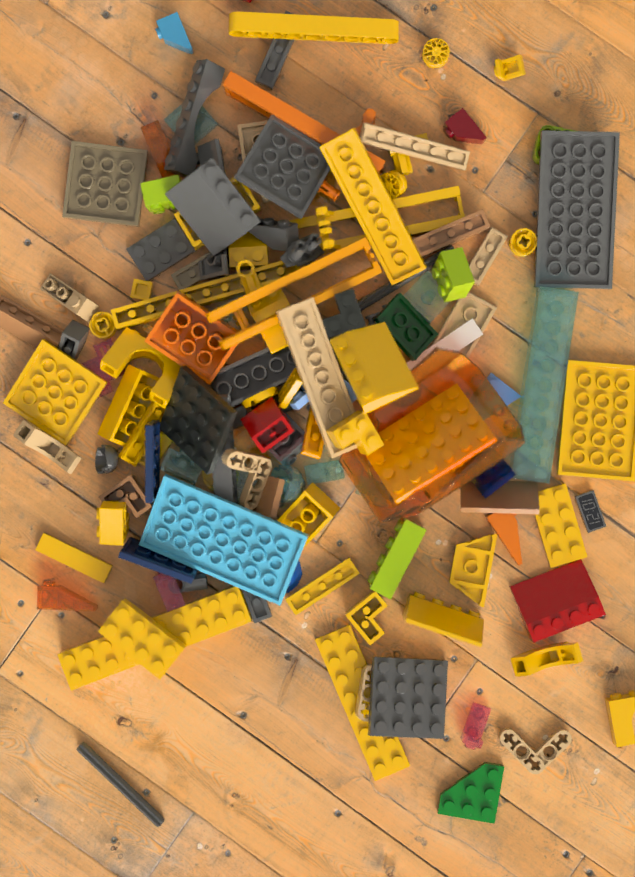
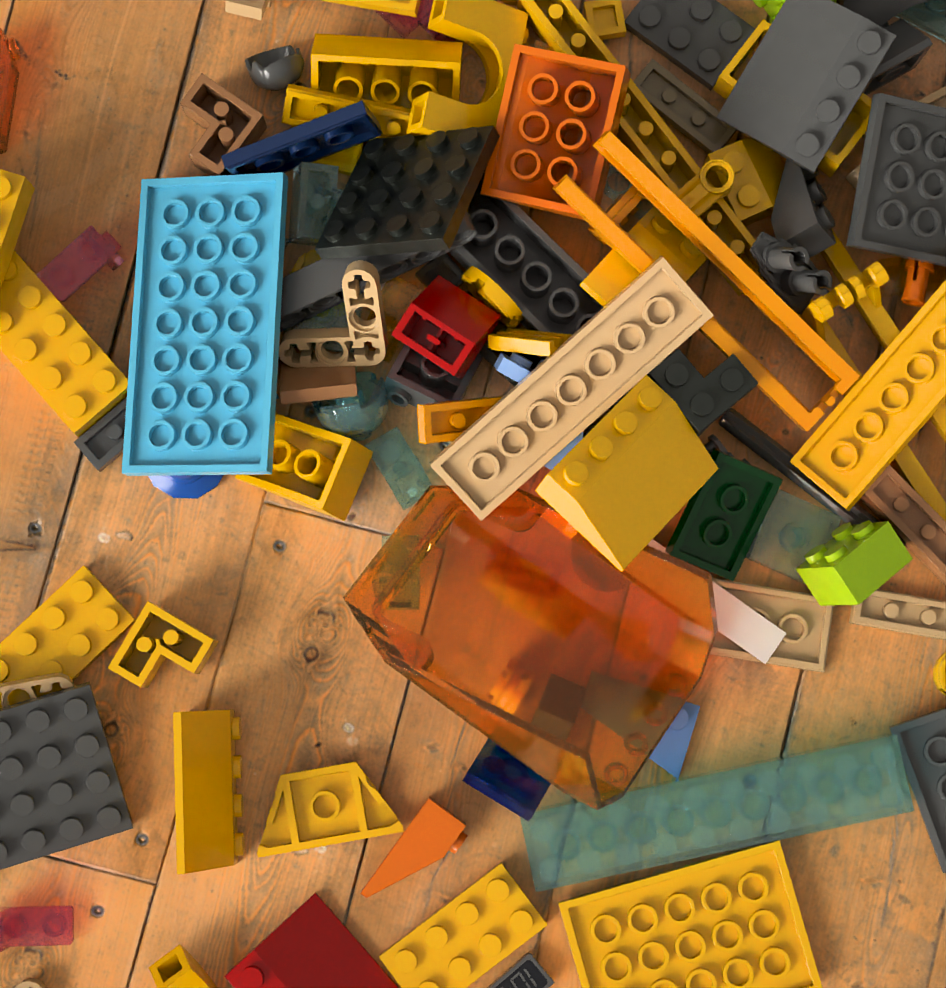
camera: 65 degrees right, 5 degrees down
(74, 557) = (76, 77): yellow tile -> none
(113, 523) = (163, 116): yellow brick -> none
(147, 558) = (120, 219): dark blue tile -> none
(199, 583) = (109, 303): dark grey piece -> none
(214, 266) = (700, 129): dark grey slope -> none
(322, 586) = (187, 542): yellow plate -> none
(356, 429) = (502, 490): yellow brick -> none
(396, 558) = (289, 658): lime brick -> none
(429, 443) = (524, 632): light orange plate -> none
(510, 498) = (477, 824): medium nougat tile -> none

